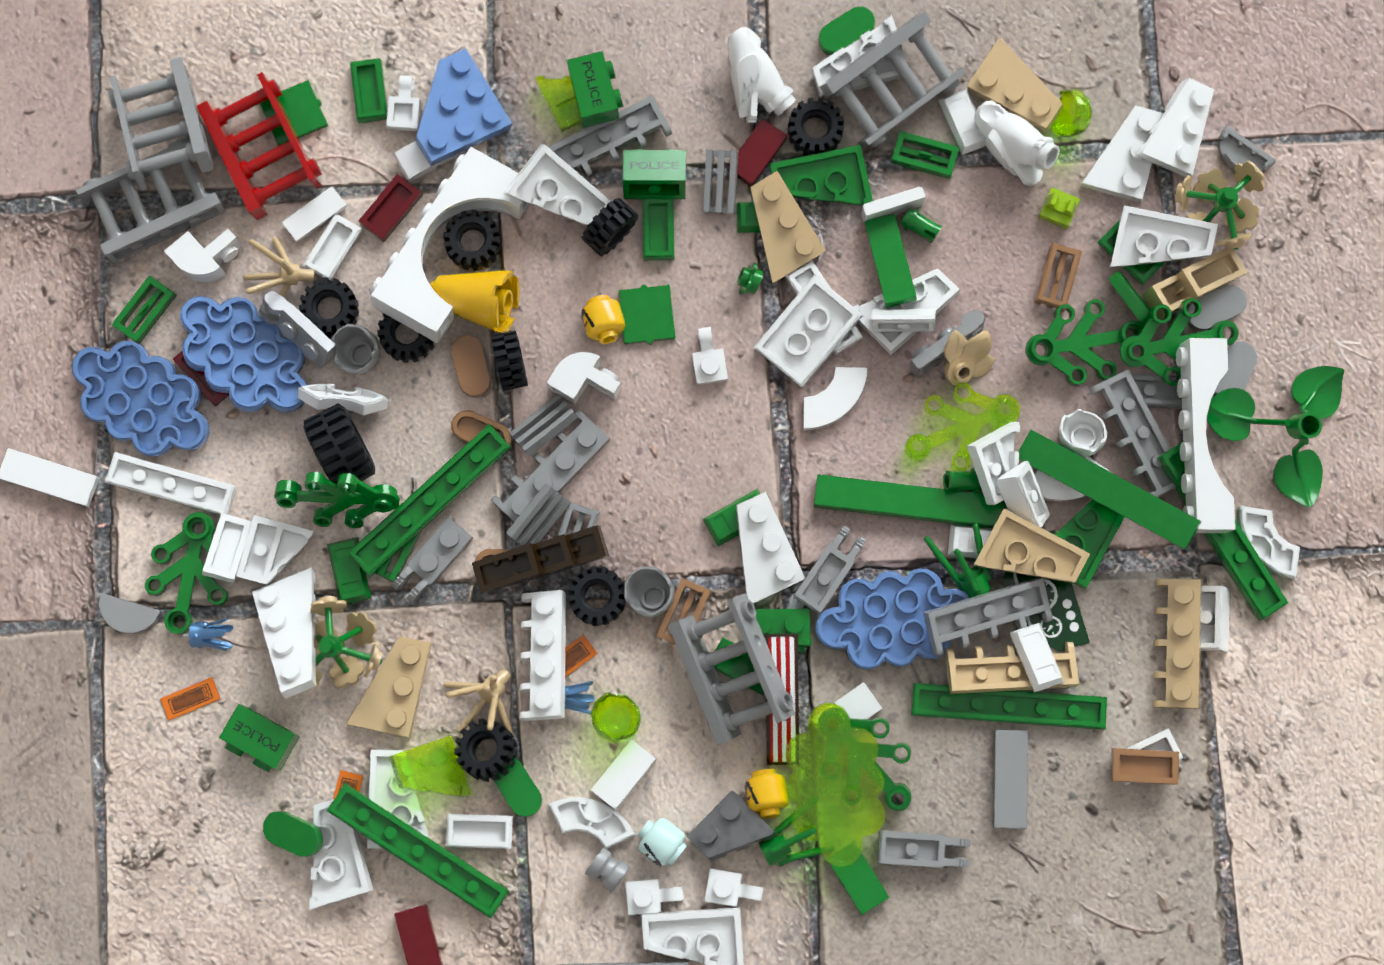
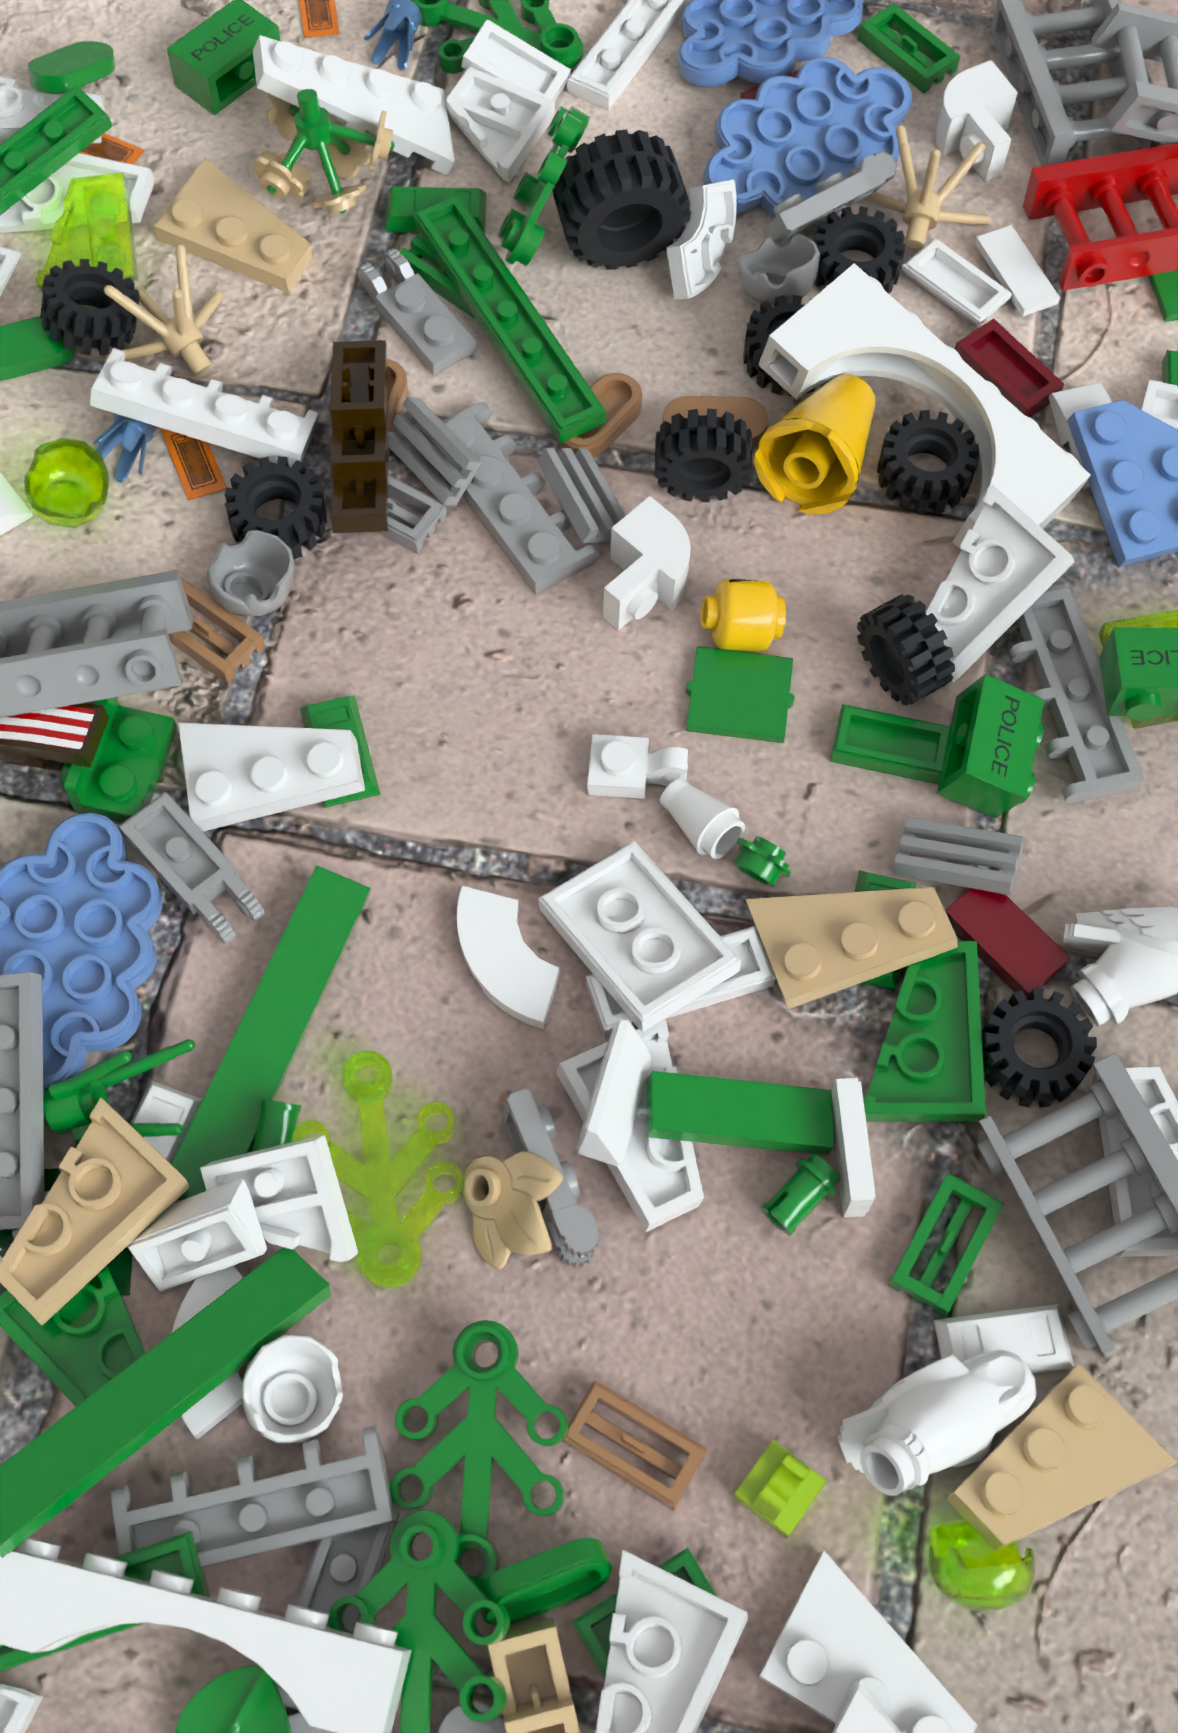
camera: 100 degrees right, 15 degrees down
(731, 315) = (704, 819): none -> white cone

